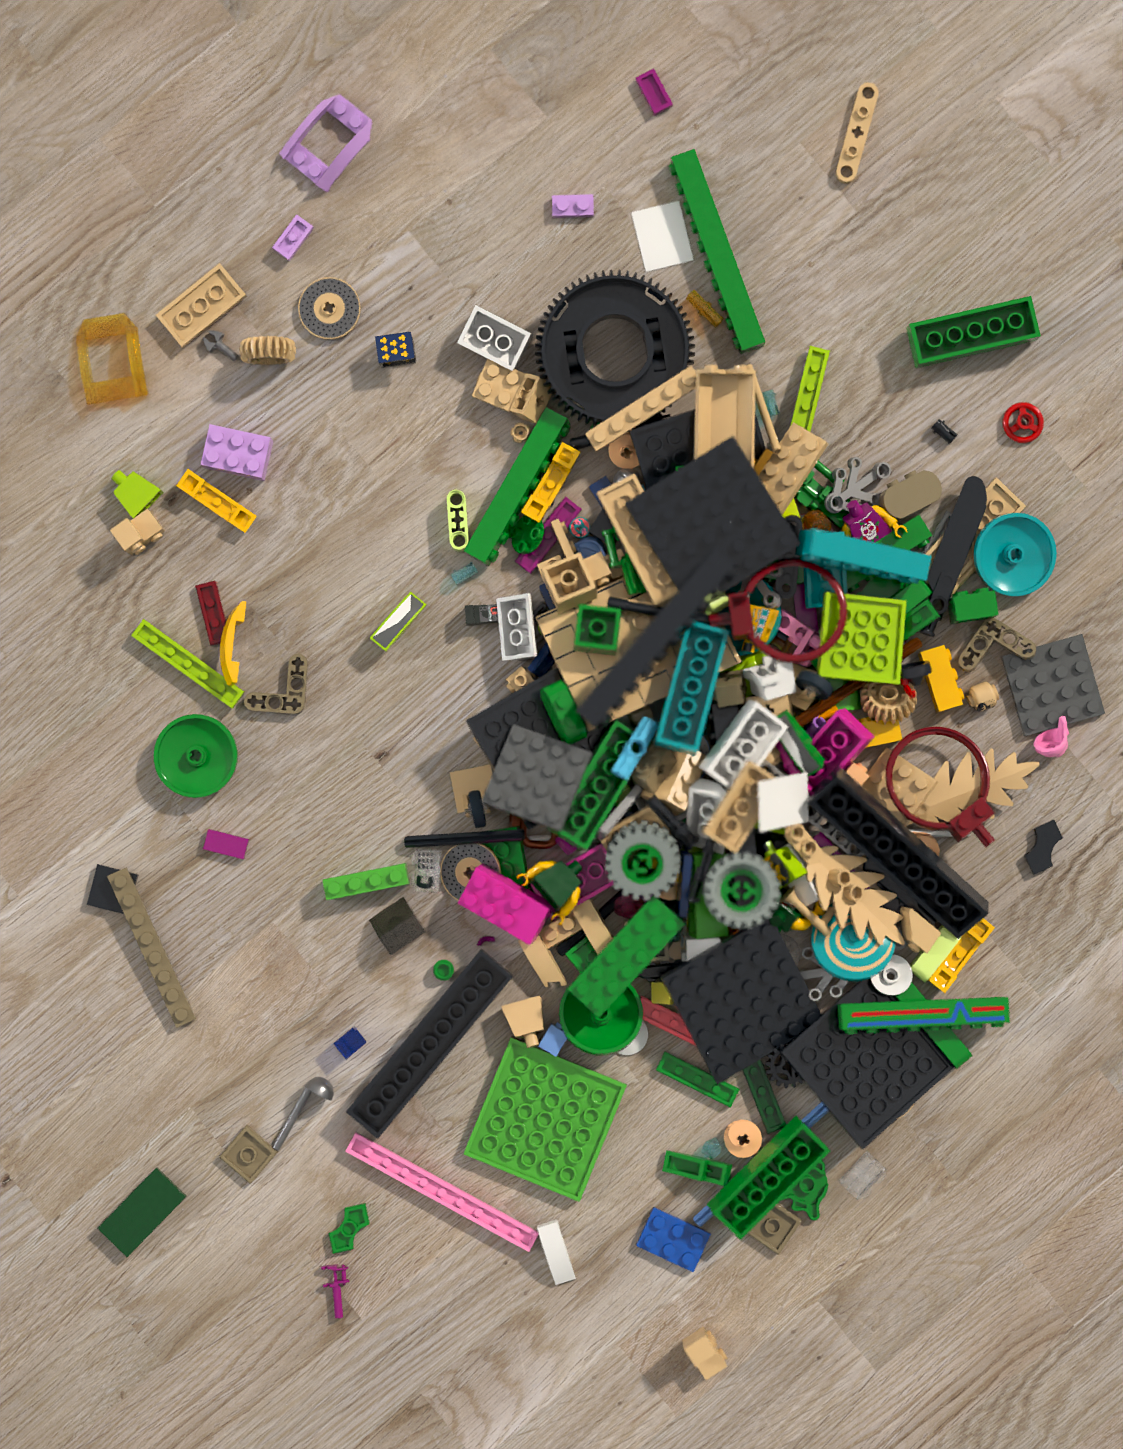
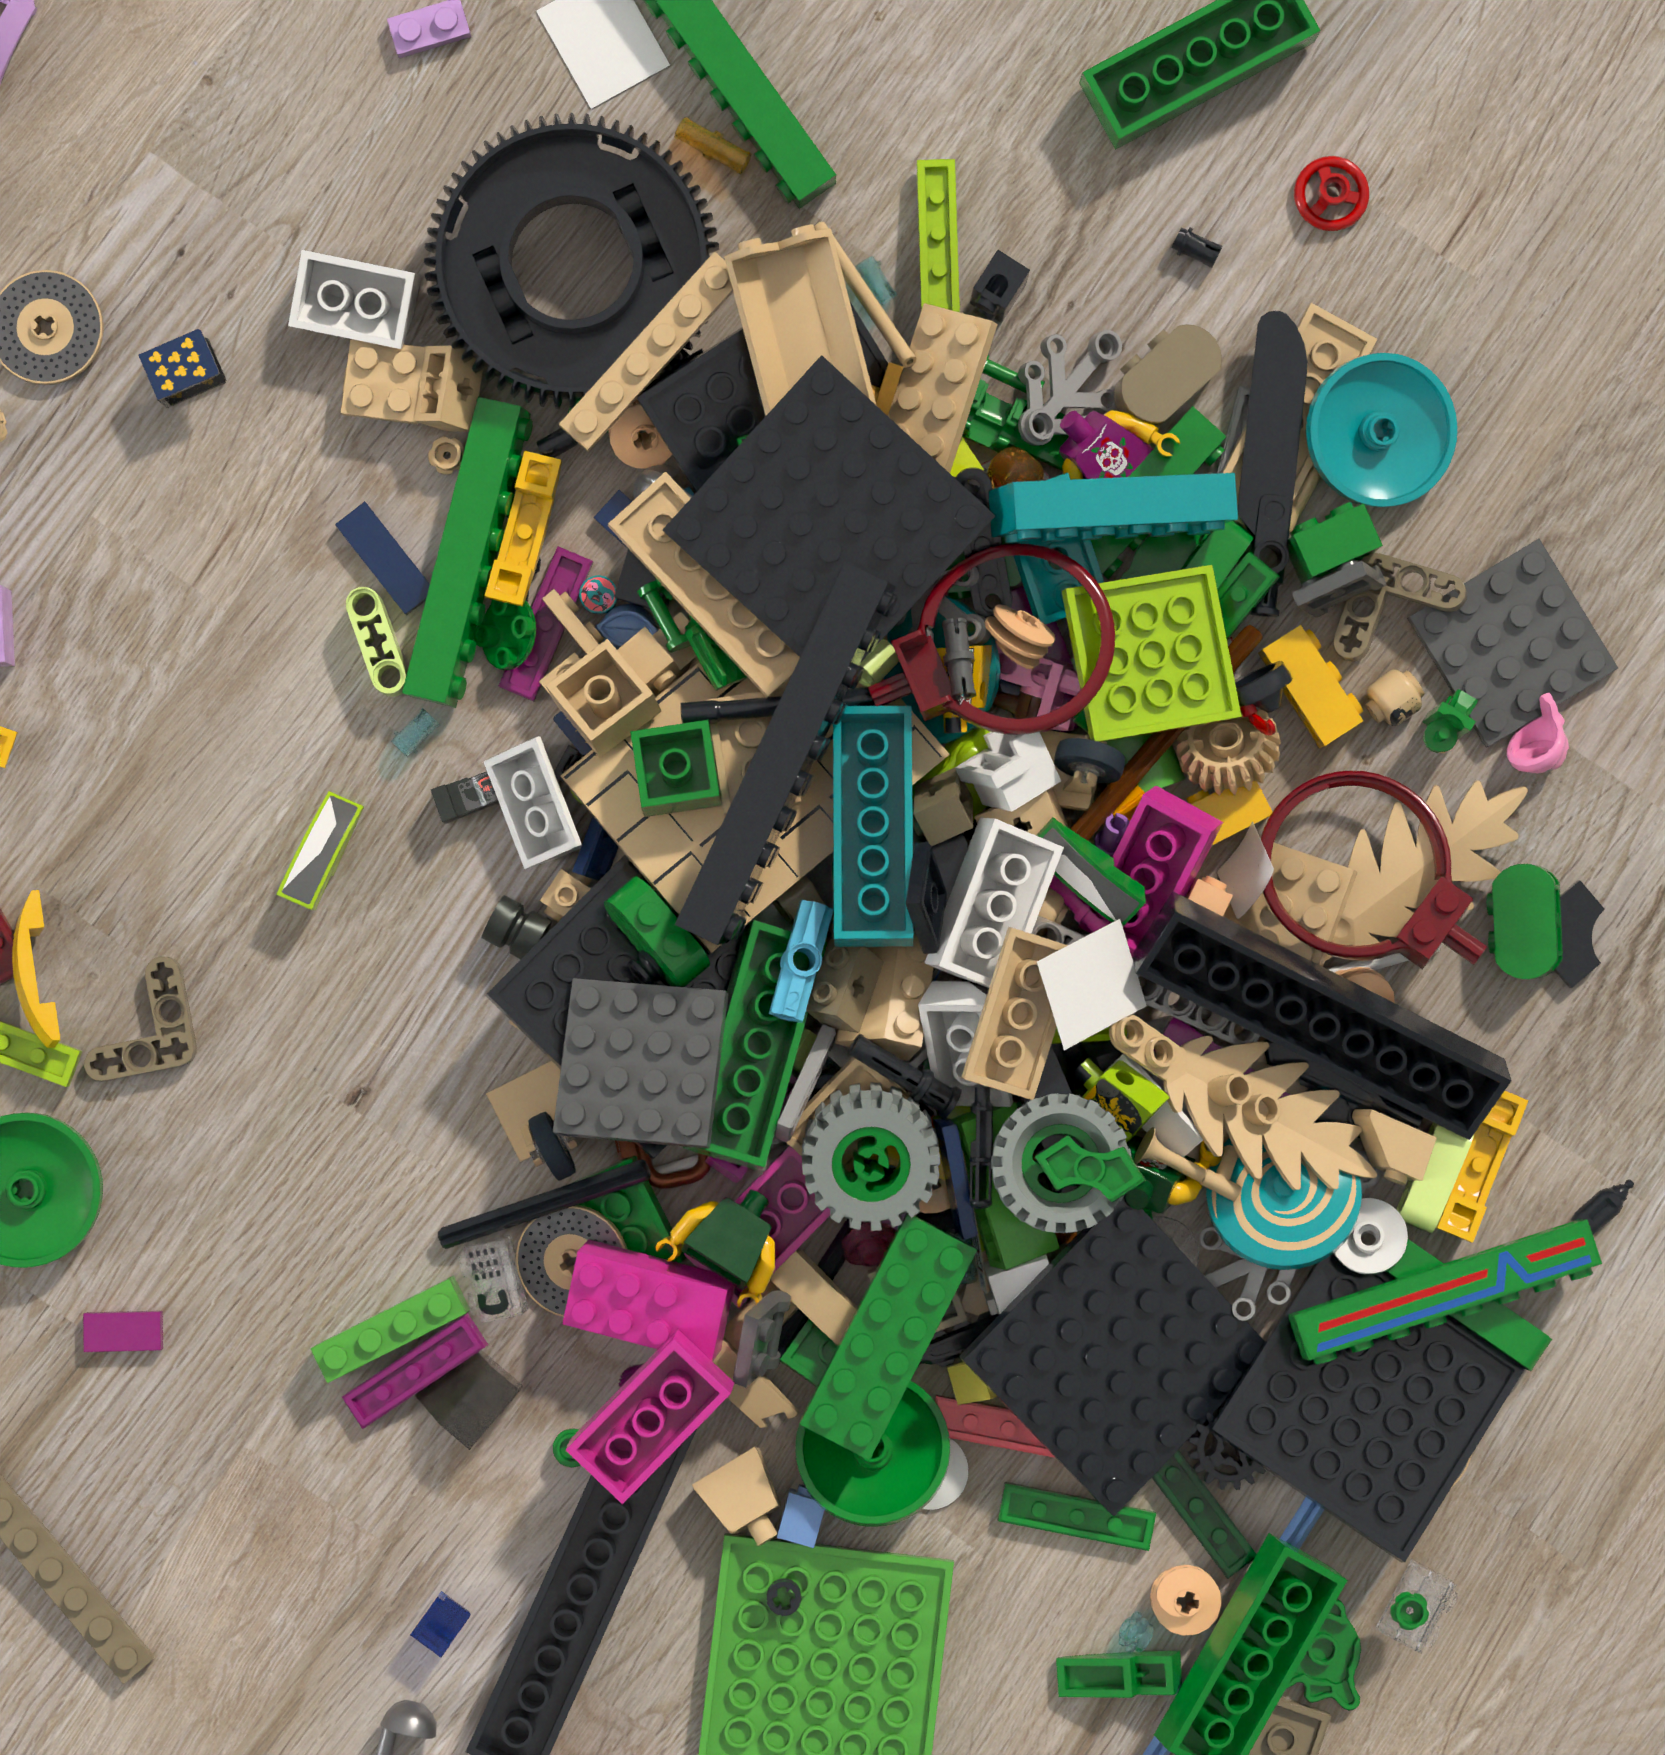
camera: 25 degrees left, 0 degrees up
(372, 906) = (415, 1370): none -> magenta tile
(473, 477) = (384, 557): none -> dark blue tile
(489, 690) = (515, 928): none -> pearl dark grey wheel
(490, 963) = (650, 1416): none -> dark pink brick
(528, 1074) = (794, 1600): none -> black bush
(552, 729) = (645, 968): none -> black bush
(559, 939) = (761, 1338): none -> dark grey plate
(709, 733) = (926, 898): none -> black tile
(760, 613) = (958, 658): none -> dark grey pin
(765, 901) = (1109, 1172): none -> green tile
(795, 610) = (1020, 635): none -> light nougat piece
(838, 420) = (999, 287): none -> black brick
(853, 1176) = (1417, 1617): none -> green plate
(880, 766) = (1243, 875): none -> white sticker
(974, 629) = (1348, 581): none -> dark grey plate
(1007, 717) = (1449, 722): none -> green hips
(1019, 833) = (1526, 921): none -> green brick
(1019, 993) = (1603, 1206): none -> black piece

